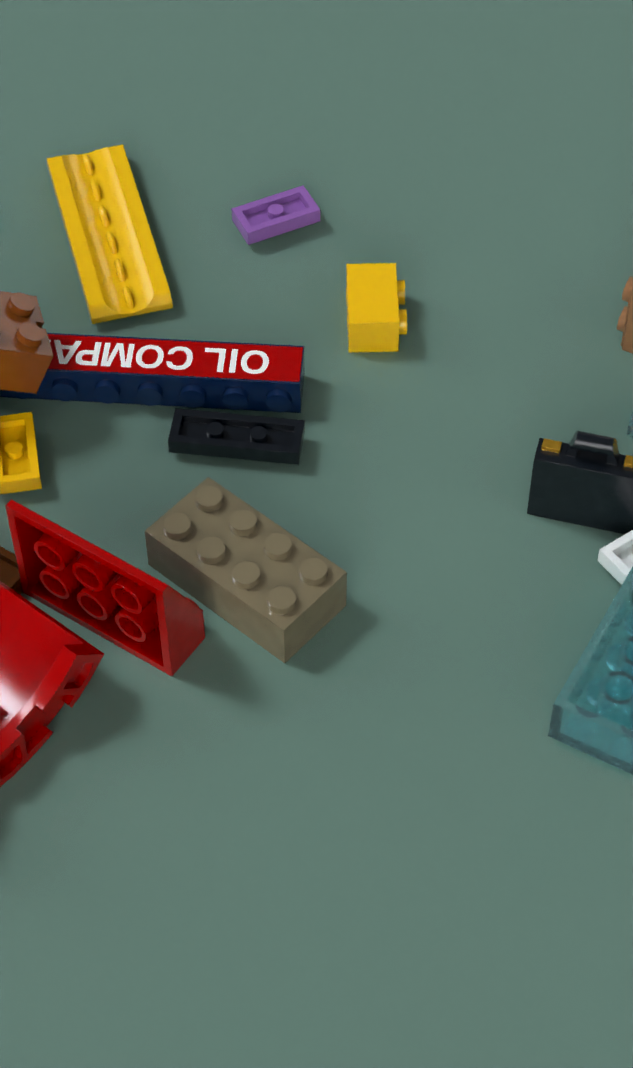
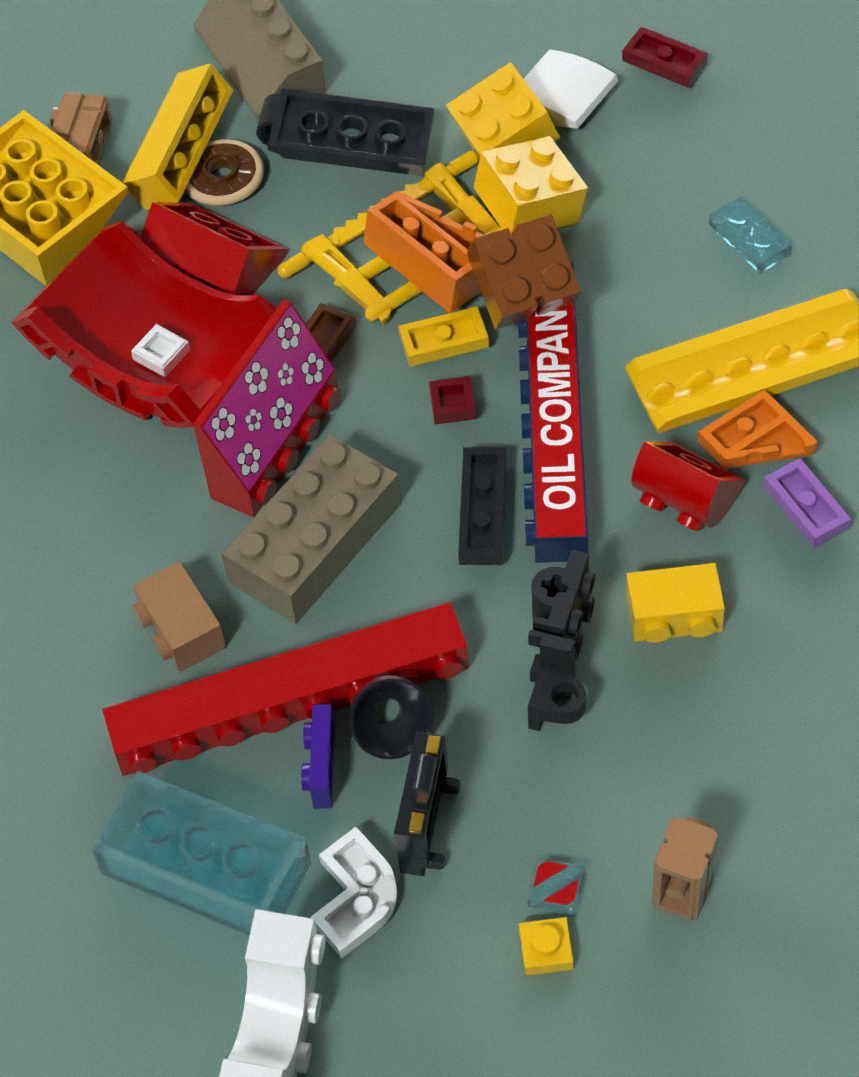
camera: 90 degrees right, 5 degrees up
(100, 451) = (452, 400): none -> dark red plate
(192, 238) = (756, 434): none -> orange wing
(248, 281) = (685, 483): none -> red brick
(338, 693) = (178, 616): none -> medium nougat brick
(404, 372) = (558, 608): none -> black plate
(441, 610) = (282, 689): none -> red brick
(481, 513) = (396, 737): none -> black piece
(518, 575) = (320, 739): none -> dark purple plate

